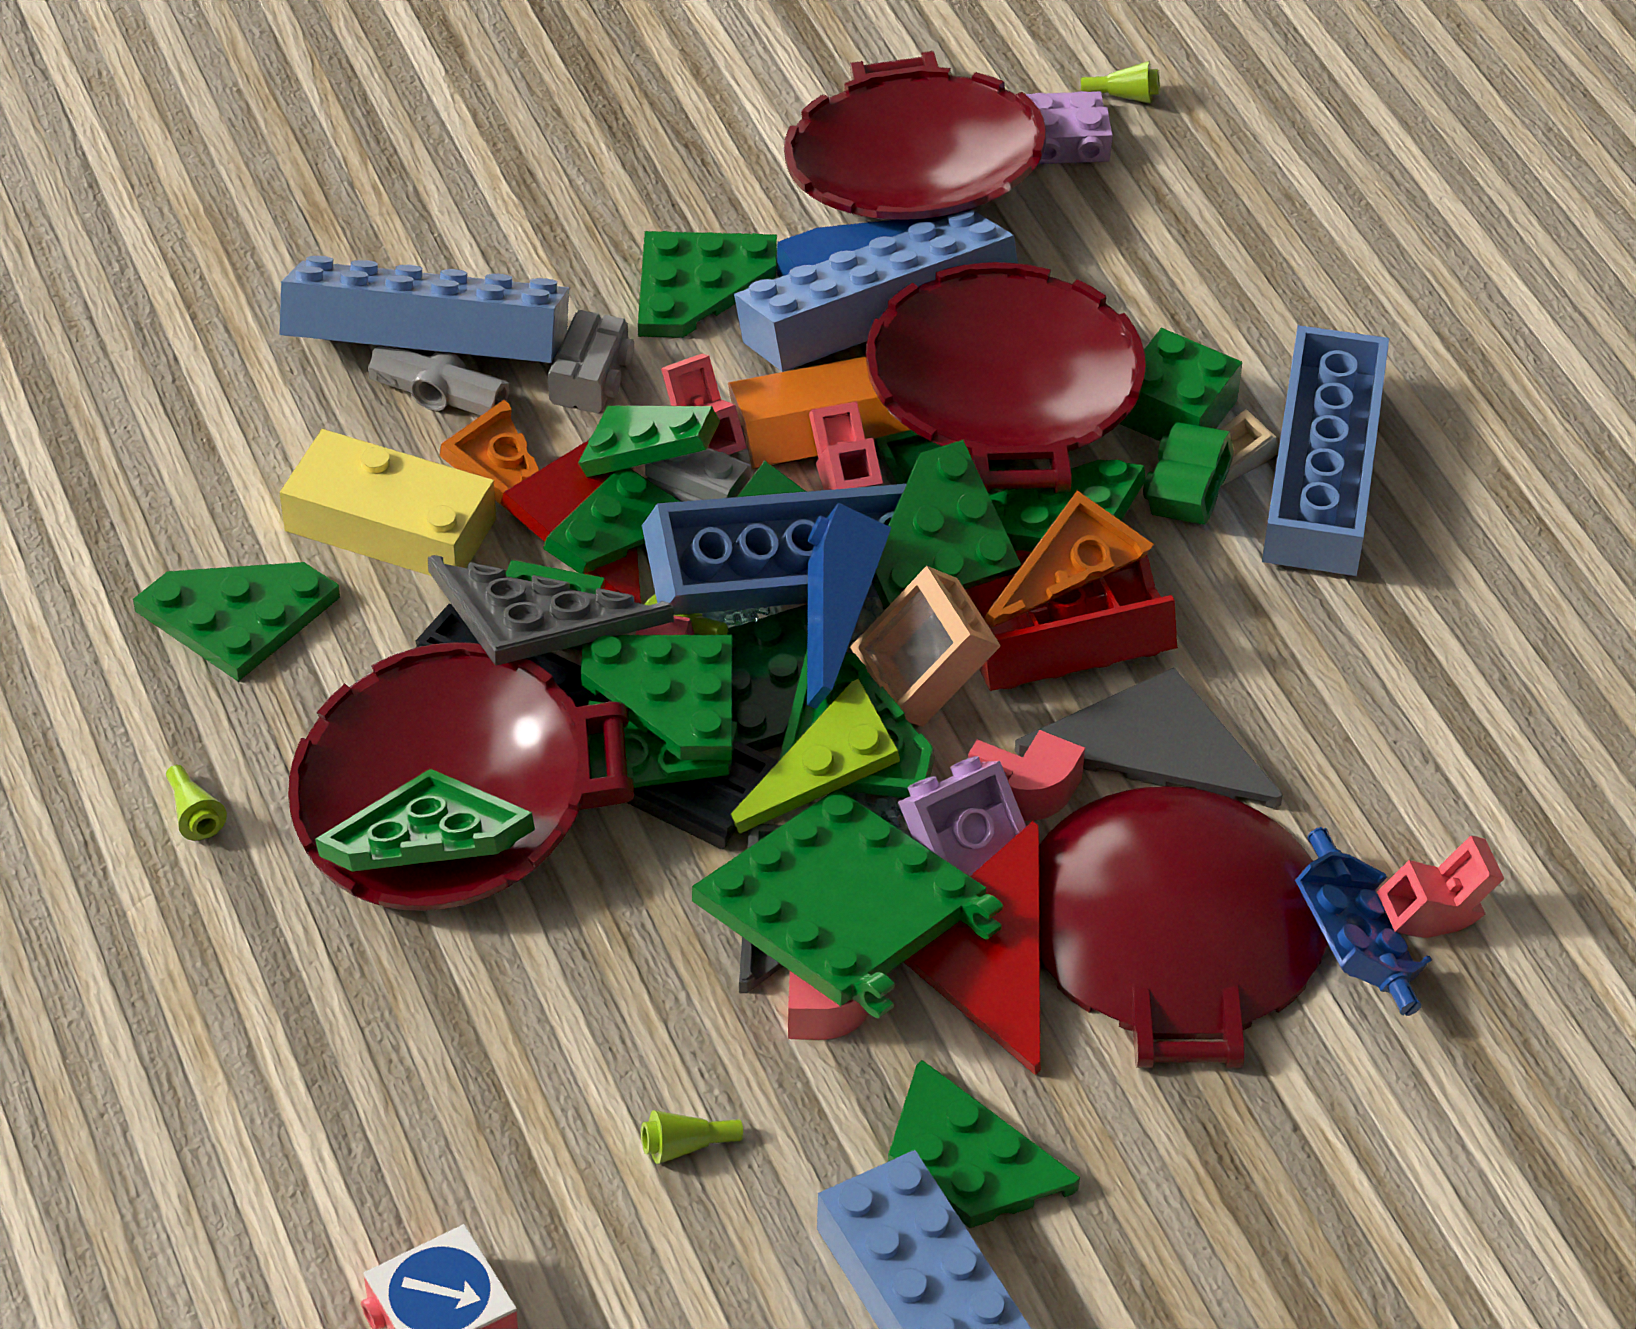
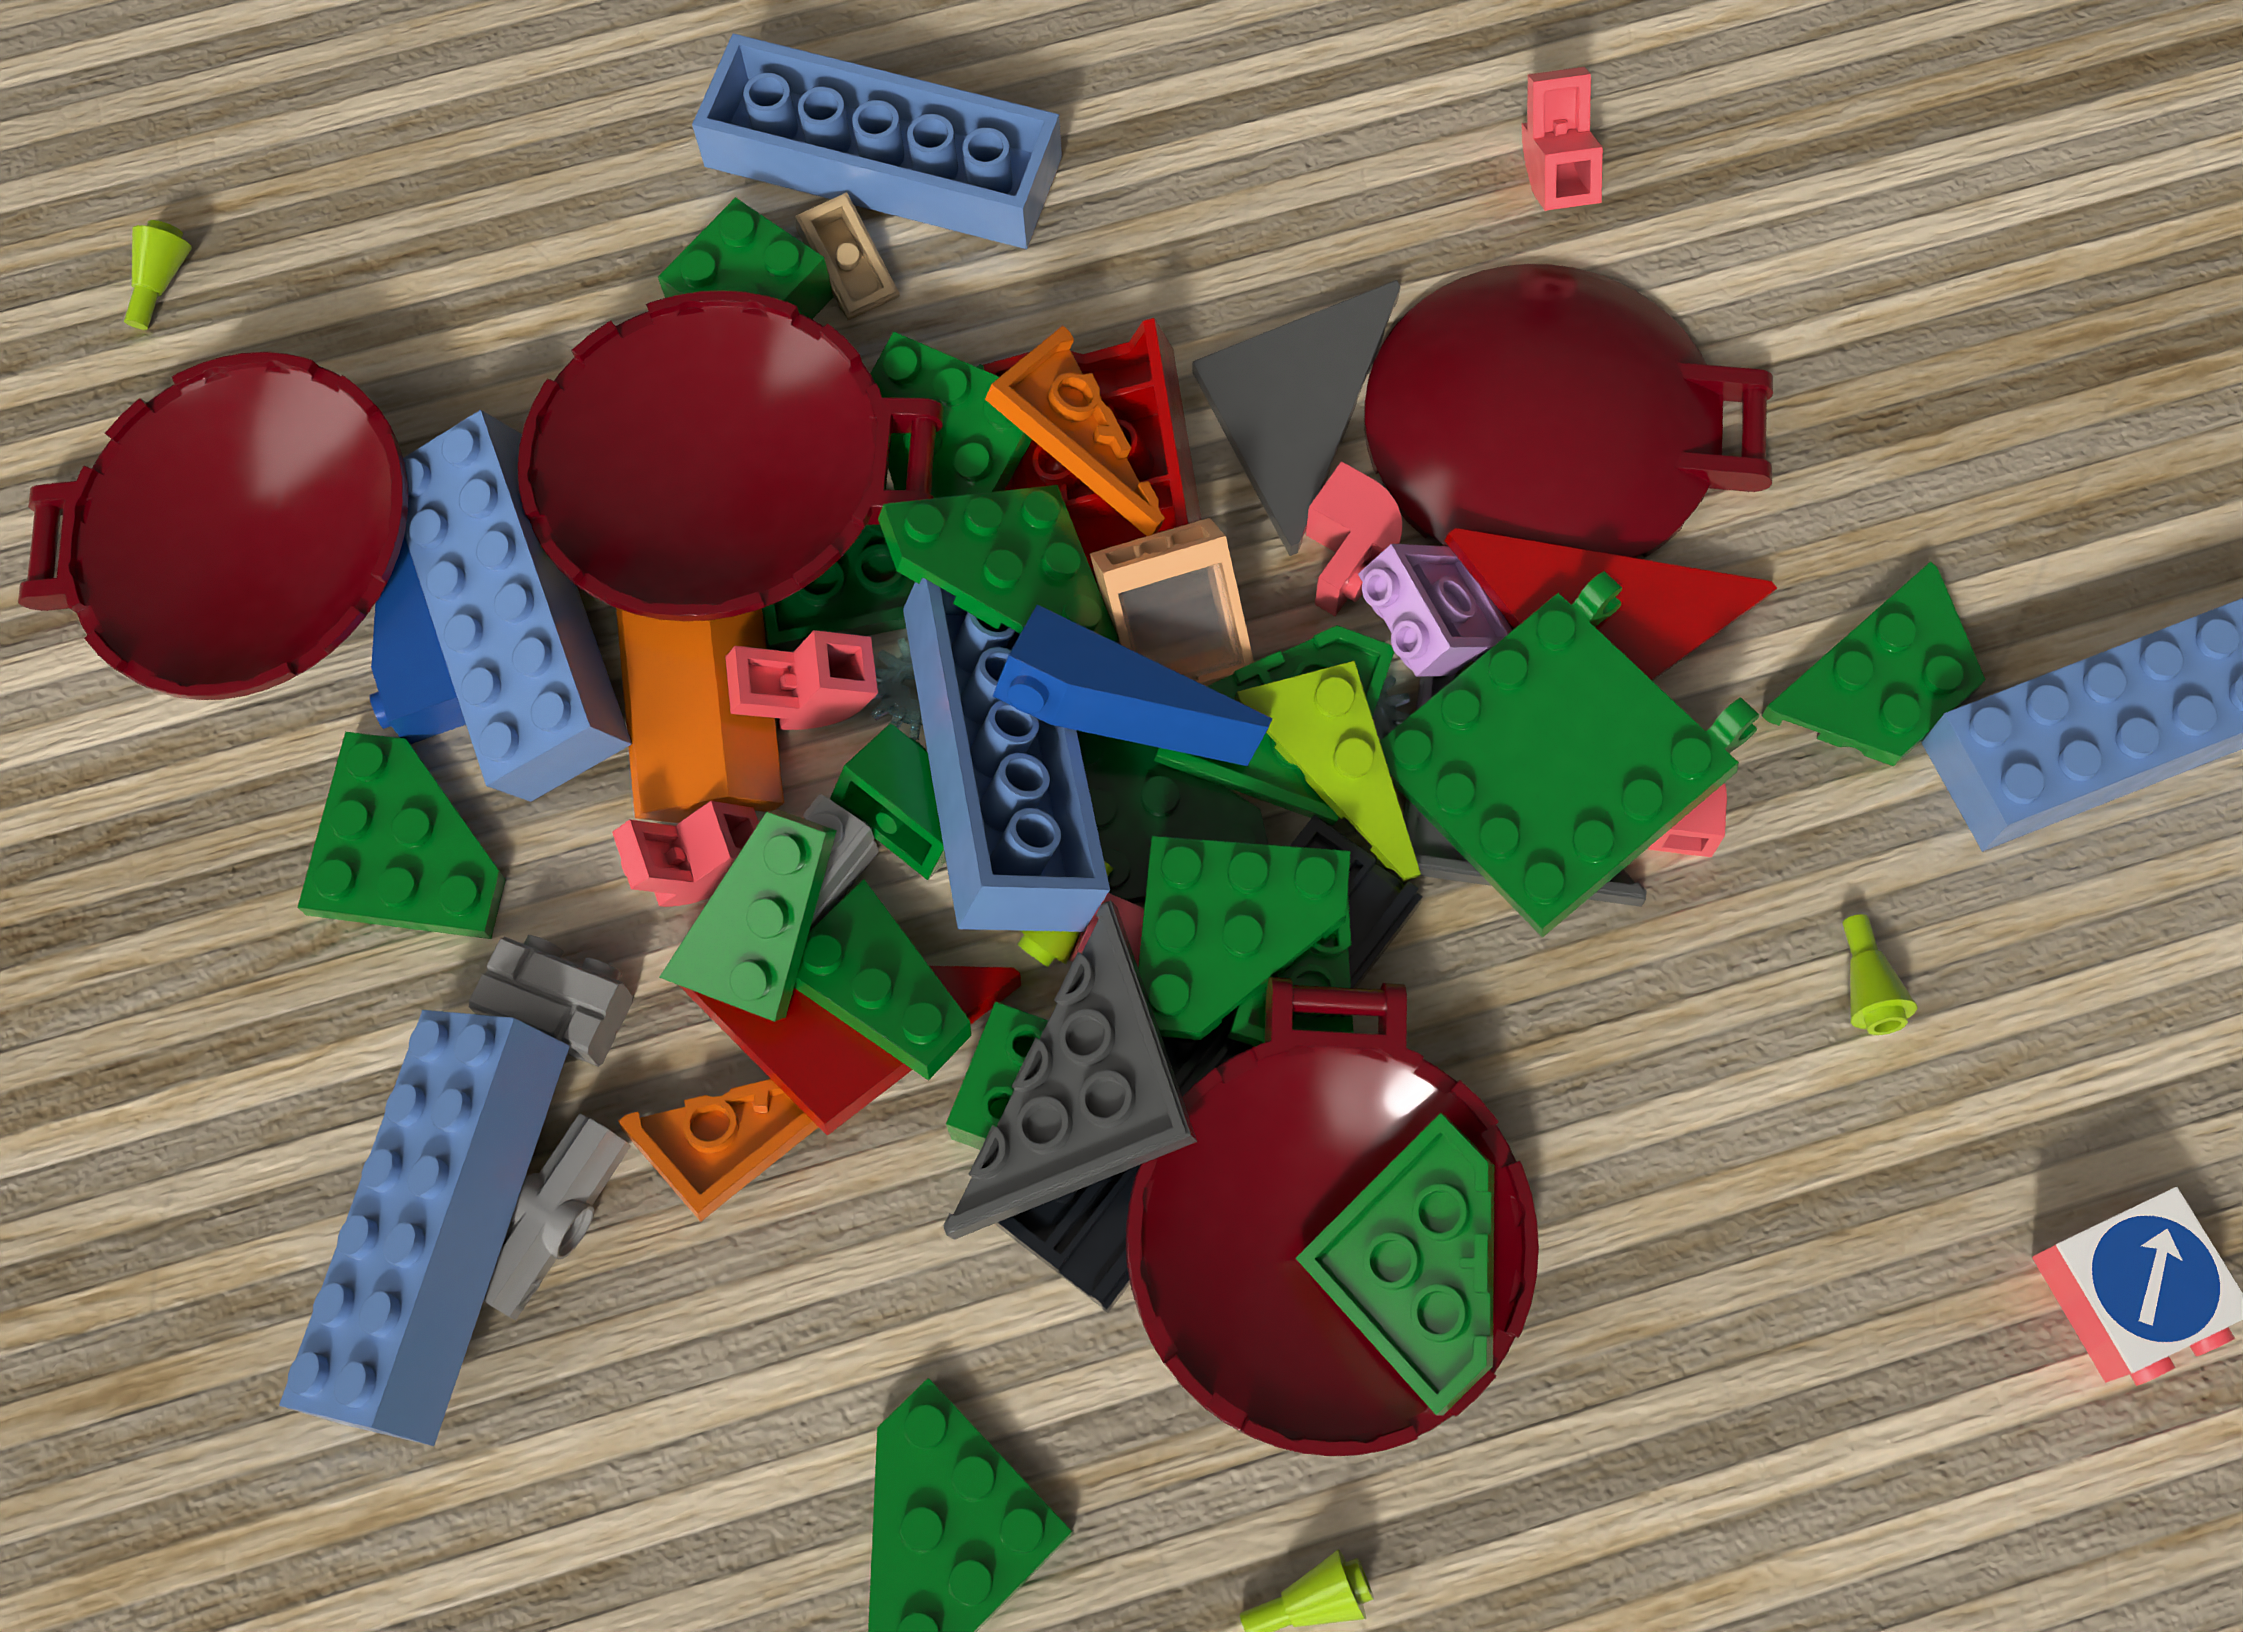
camera: 80 degrees left, 20 degrees up
(387, 503) = (794, 1297): light yellow brick -> none
(1075, 127) = (205, 330): lavender plate -> none
(1189, 472) = (890, 290): green brick -> none
(1355, 922) = (1601, 233): blue plate -> none

